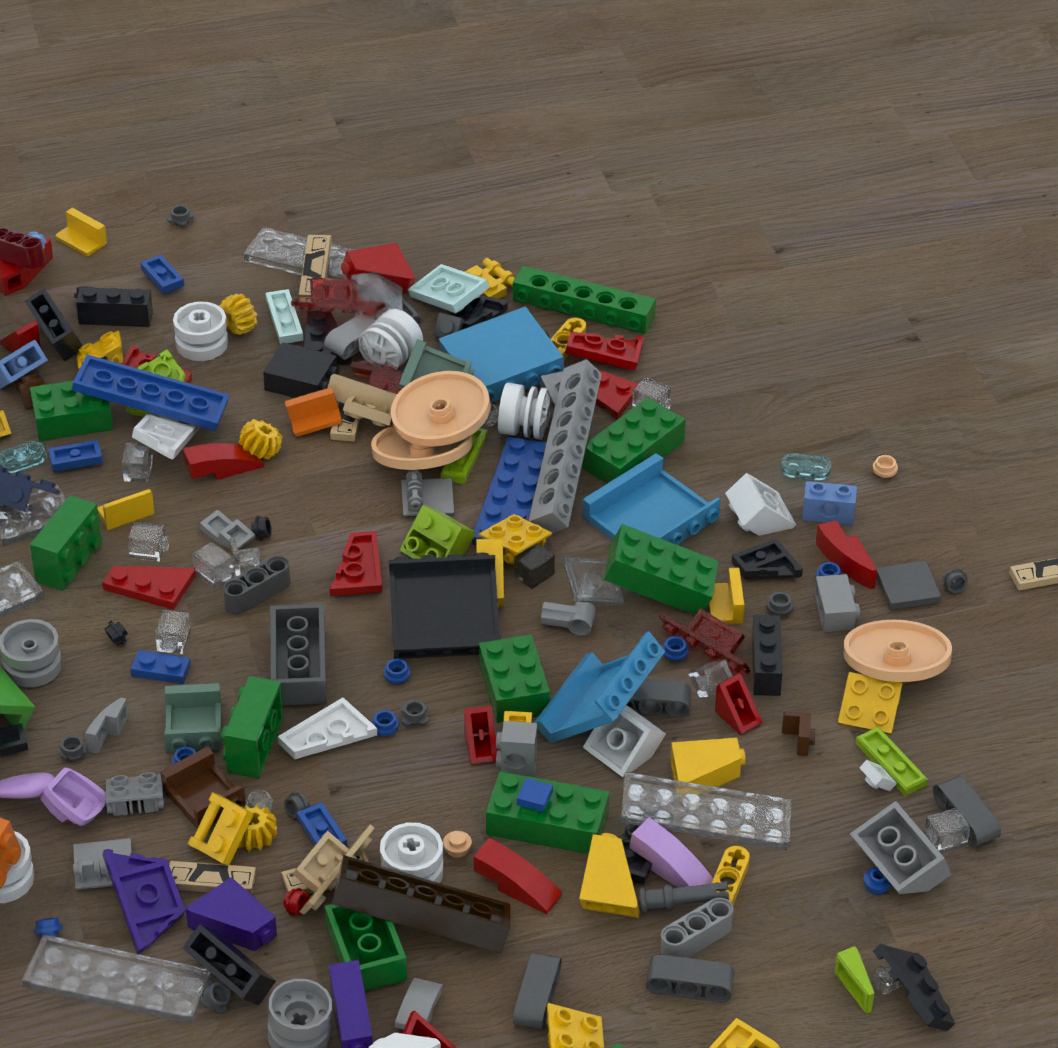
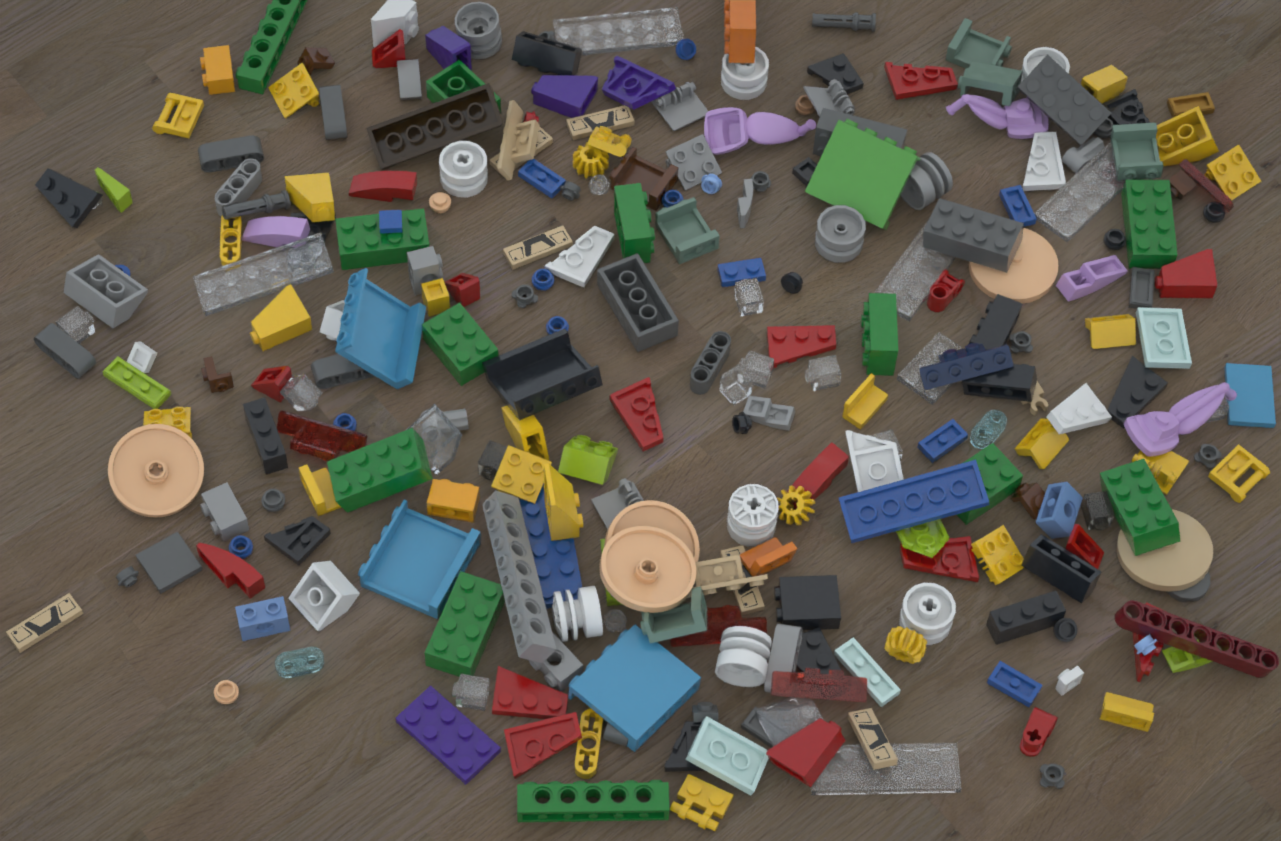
camera: 155 degrees right, 15 degrees up
(113, 260) = (1068, 680): none -> white plate
(129, 762) = (711, 183): none -> light blue plate
(168, 240) = (1038, 730): none -> red piece
(308, 440) = (748, 525): none -> white wheel
(370, 761) = (537, 247): none -> tan tile
(496, 477) = (561, 505): none -> yellow slope
(588, 540) = (453, 500): none -> light orange brick
(691, 384) = (448, 735): none -> dark purple plate

